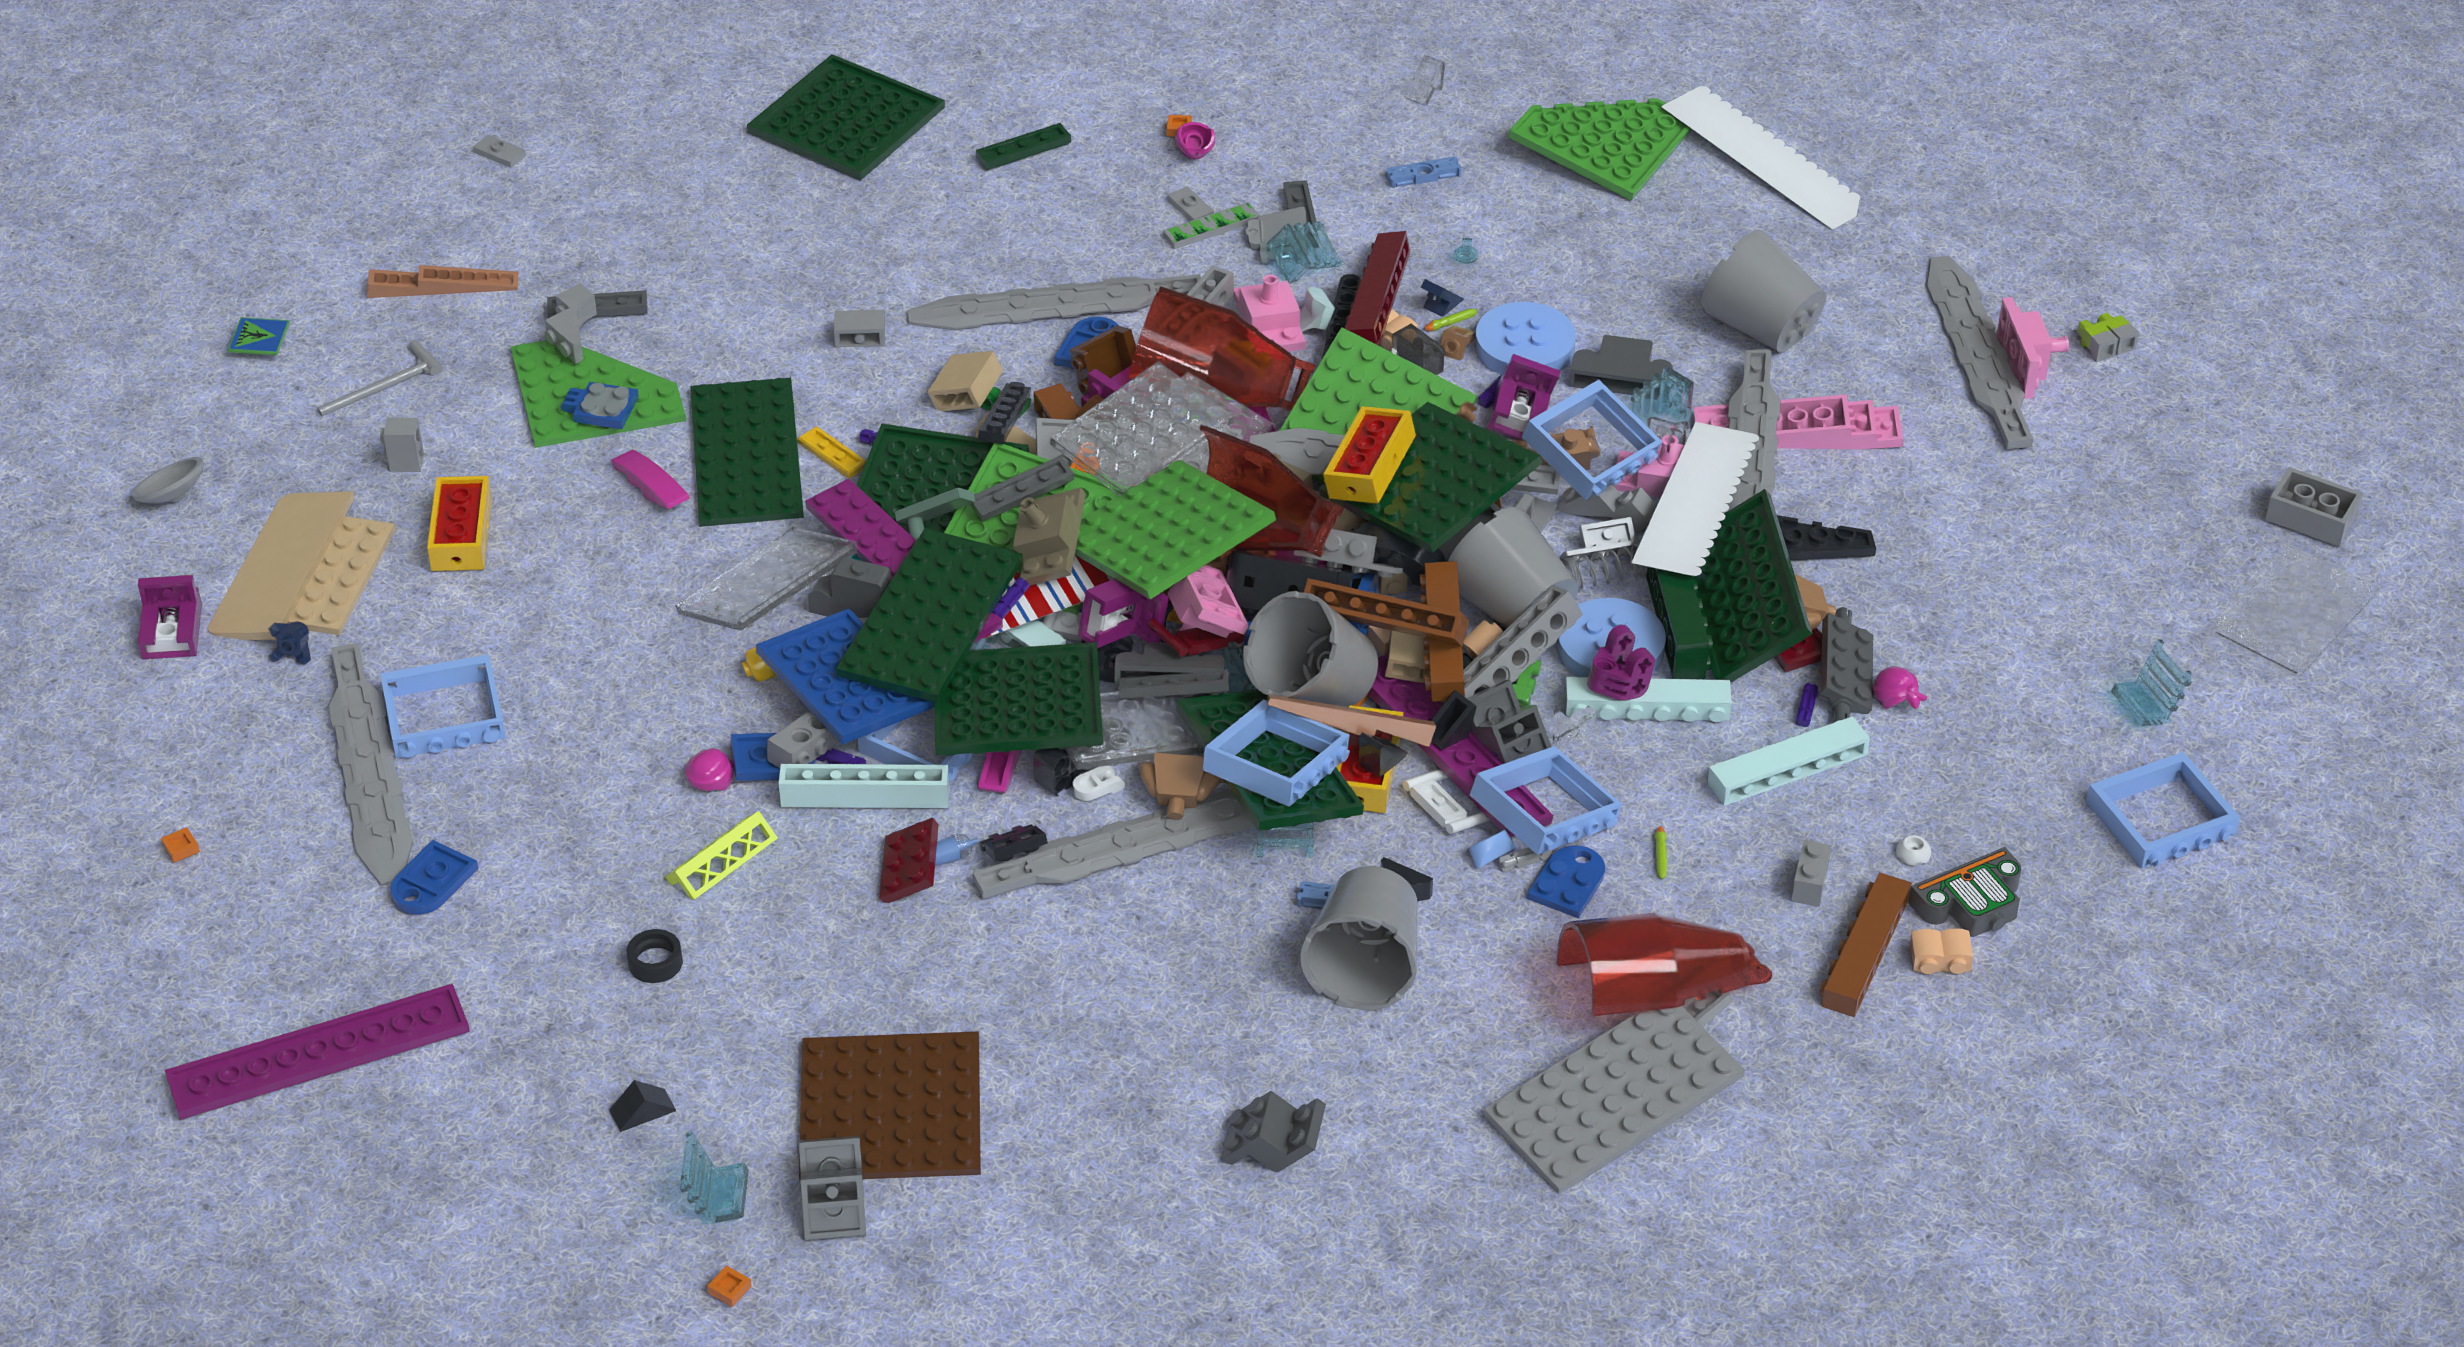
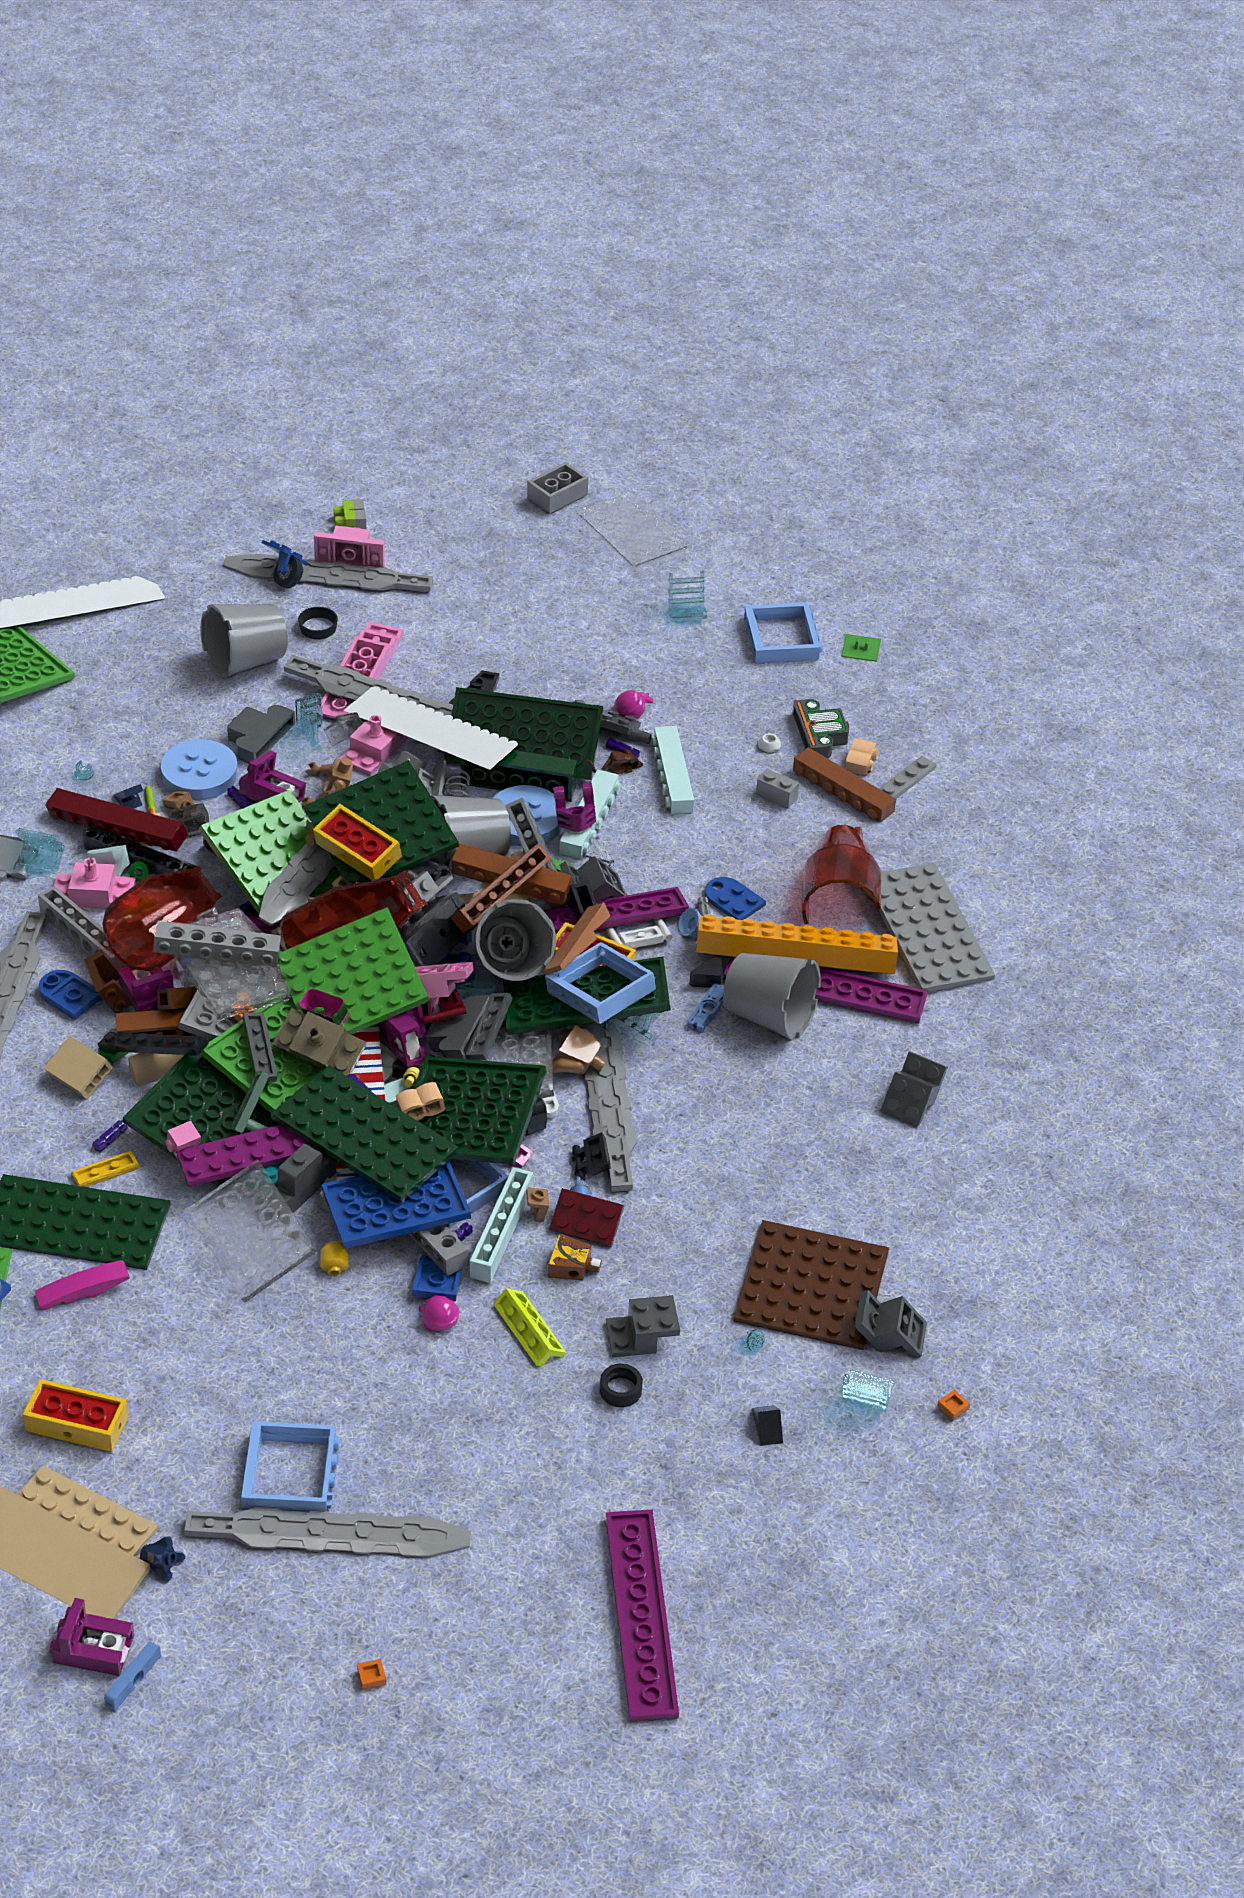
camera: 75 degrees left, 0 degrees up
(121, 661) = (133, 1673): none -> medium blue piece
(432, 878) = (480, 1508): blue plate -> none
(746, 949) = (645, 1323): none -> dark grey bracket
(769, 1065) = (754, 1341): none -> clear light blue plate
(838, 863) = (571, 1259): none -> dark orange torso
(869, 477) = (182, 1137): none -> bright pink brick
(912, 806) = (538, 1201): none -> medium nougat bracket
(1003, 649) = (421, 1102): none -> light nougat brick
(1059, 638) = (410, 1076): none -> light yellow cylinder
(1091, 501) = (315, 998): none -> dark pink piece
(1153, 399) = (216, 943): none -> light grey brick
(1221, 394) = (209, 917): none -> clear slope
(1315, 340) = (138, 865): none -> green plate
(1378, 754) = (612, 937): black slope -> none
(1445, 1015) = (867, 994): none -> magenta plate
(1489, 953) = (825, 945): none -> light orange brick
(1490, 793) = (639, 871): light blue window -> none
(1615, 413) = (328, 735): light blue window -> none
(1661, 852) = (724, 850): lime piece -> none
(1768, 703) = (620, 762): none -> reddish brown animal
(1868, 349) = (318, 612): none -> black tyre
(1929, 1014) = (908, 777): none -> light grey plate
(1960, 289) = (289, 568): none -> plate
(2201, 909) = (861, 647): none -> bright green piece

